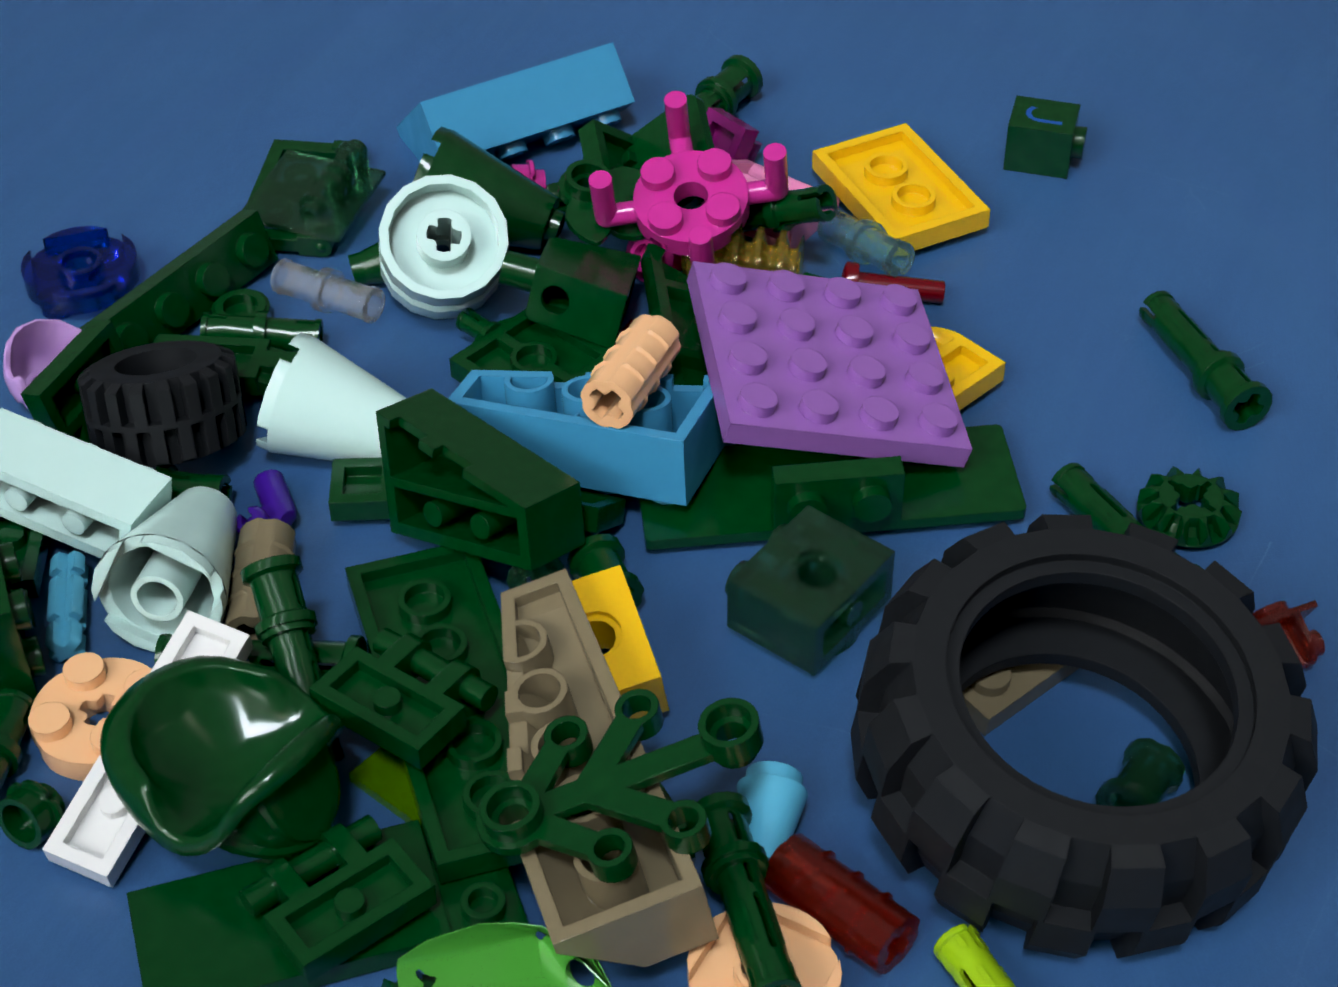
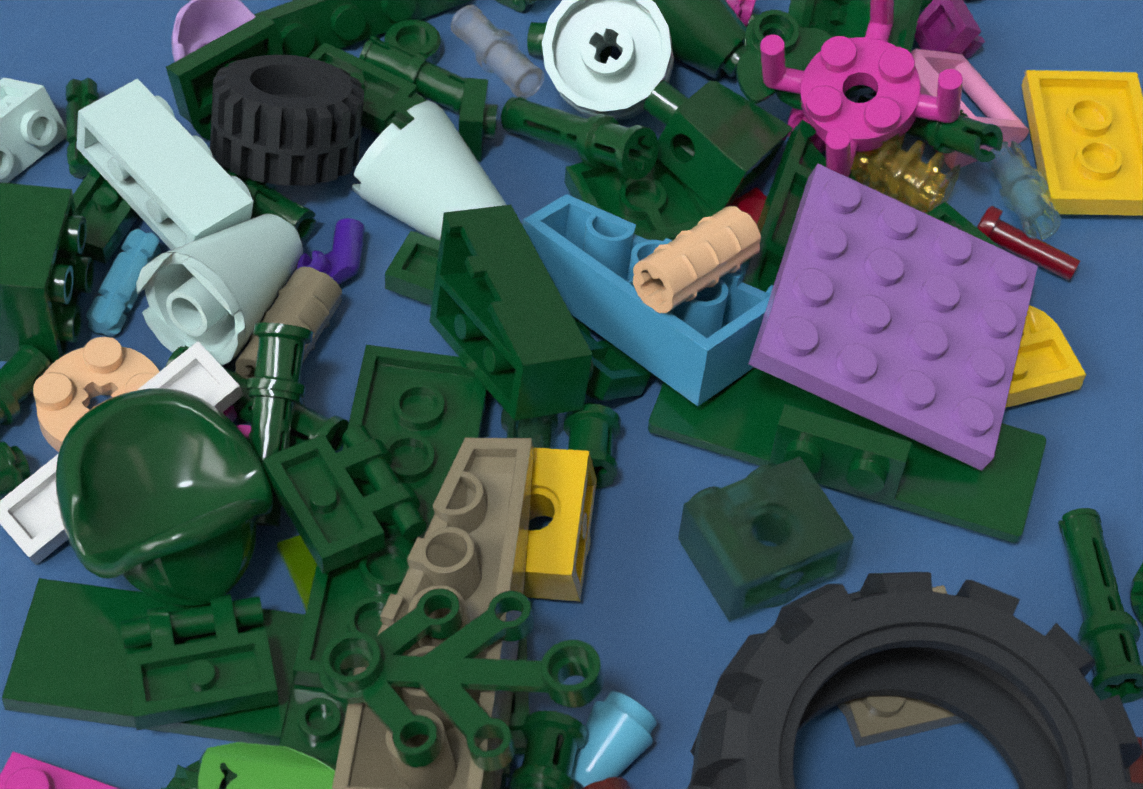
camera: 20 degrees right, 10 degrees up
(336, 335) = (476, 116): none -> dark green plate
(392, 332) = (596, 140): none -> dark green pin

